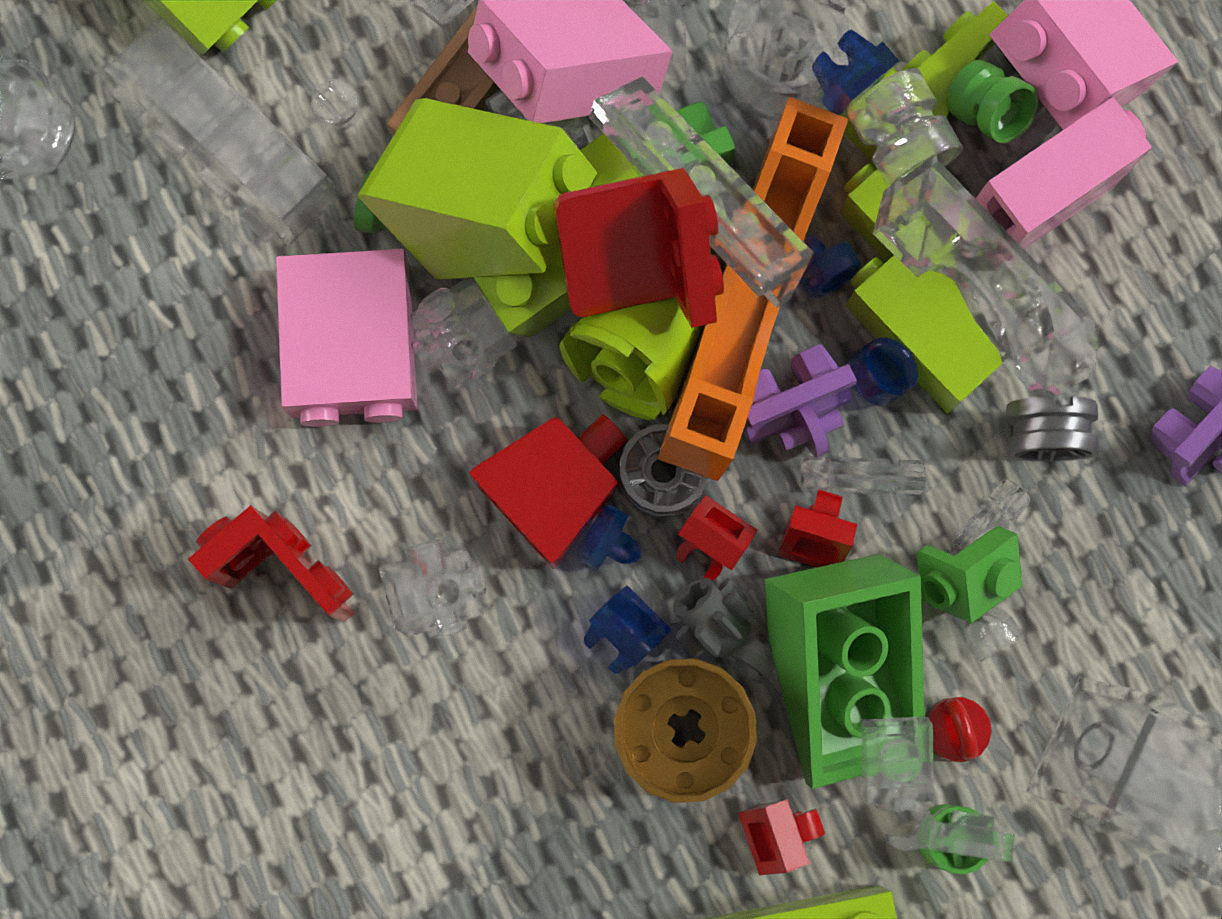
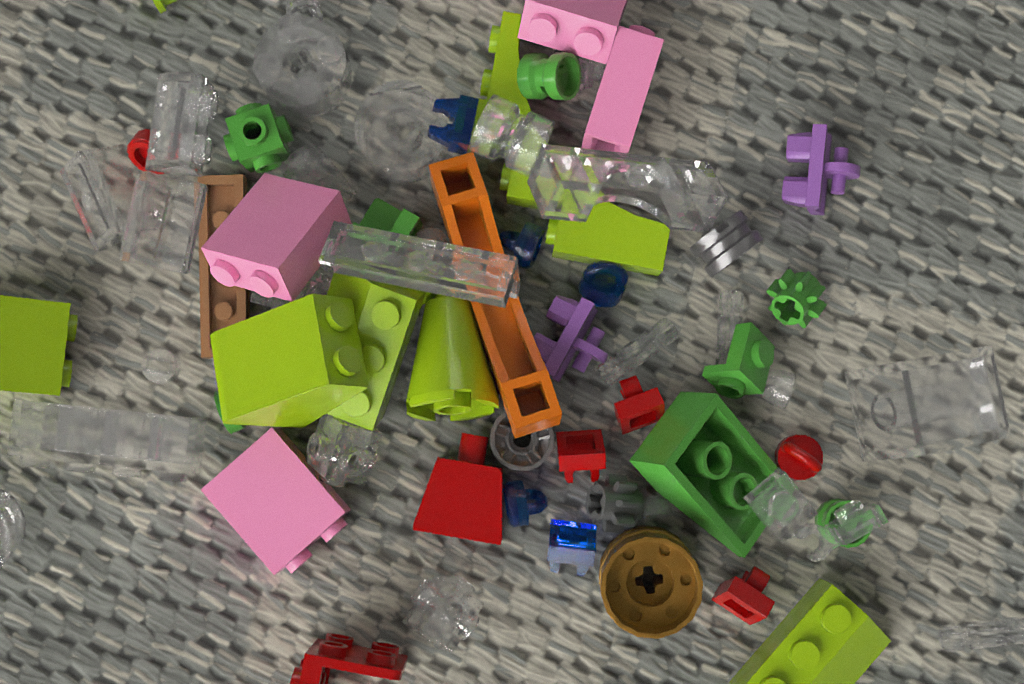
camera: 30 degrees left, 5 degrees up
(640, 246) = (412, 329): red bracket -> none
(1087, 548) = (796, 298): none -> bright green gear

